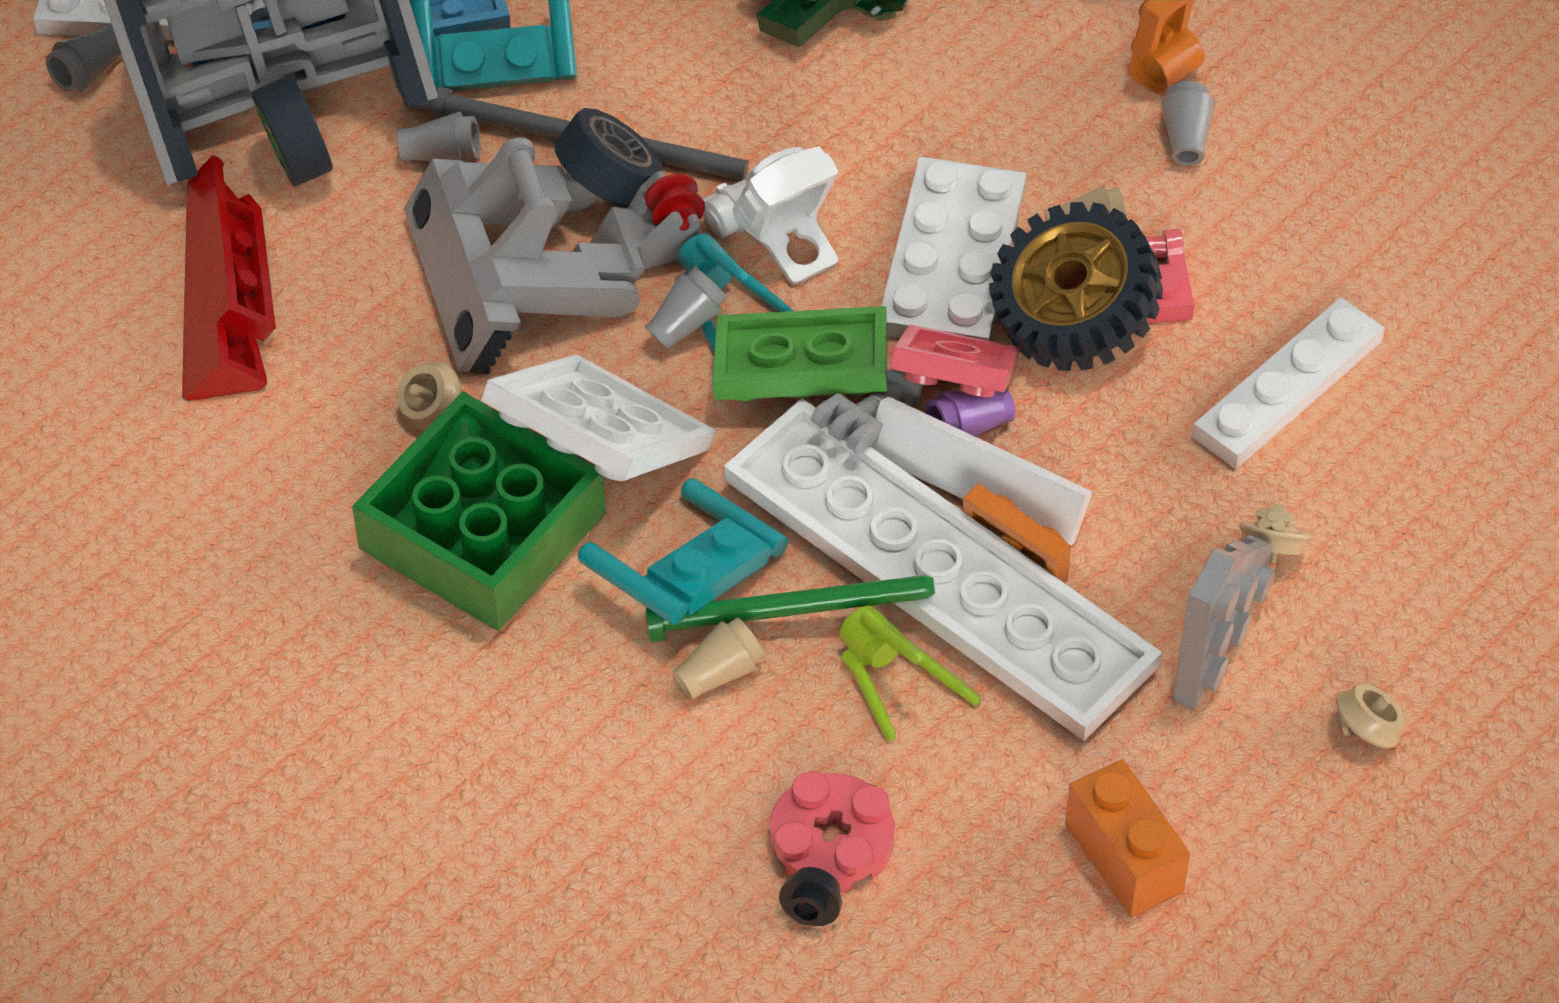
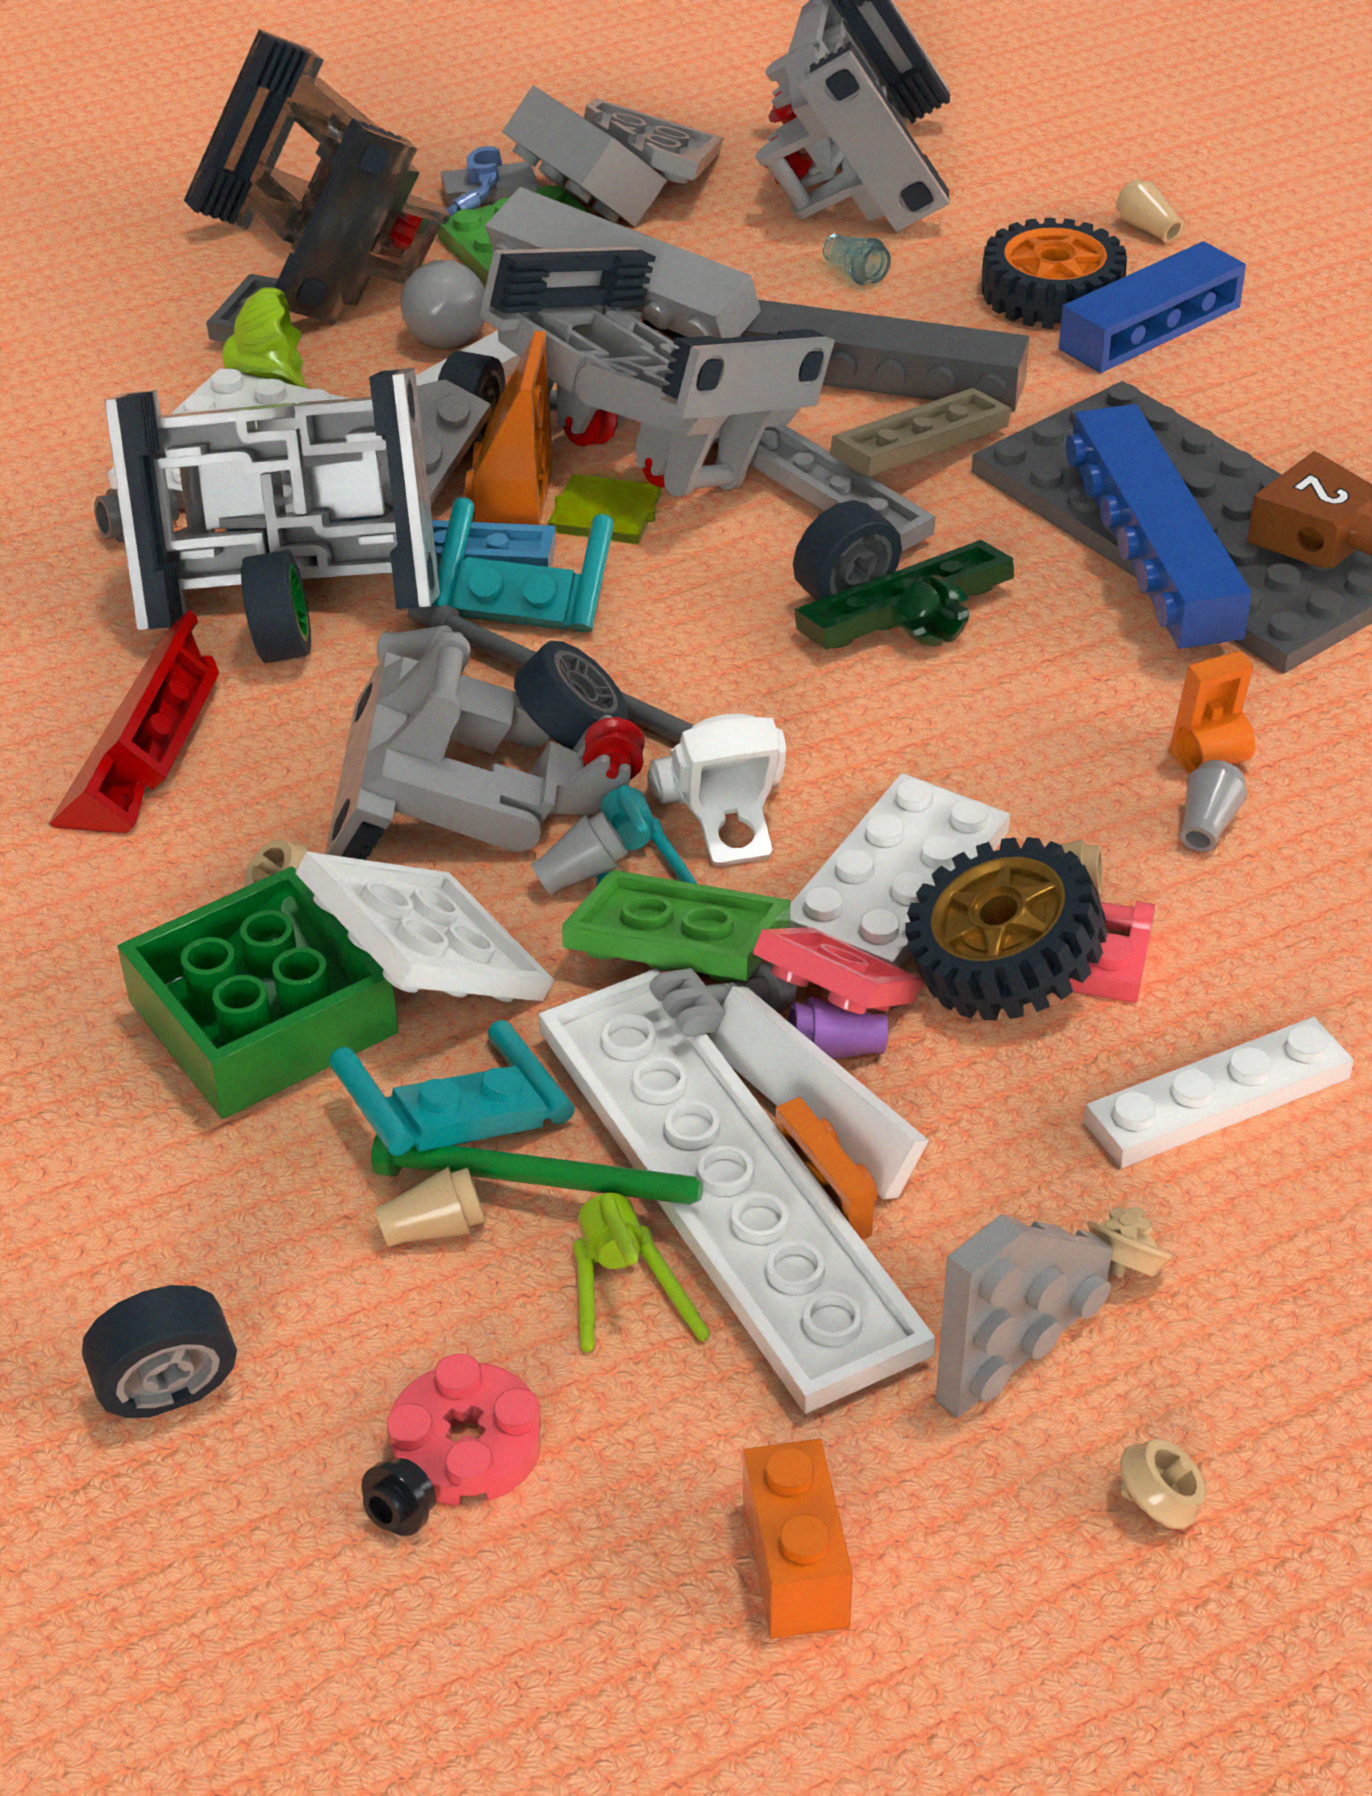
camera: 20 degrees right, 10 degrees down
(574, 841) = (158, 1351): none -> black wheel

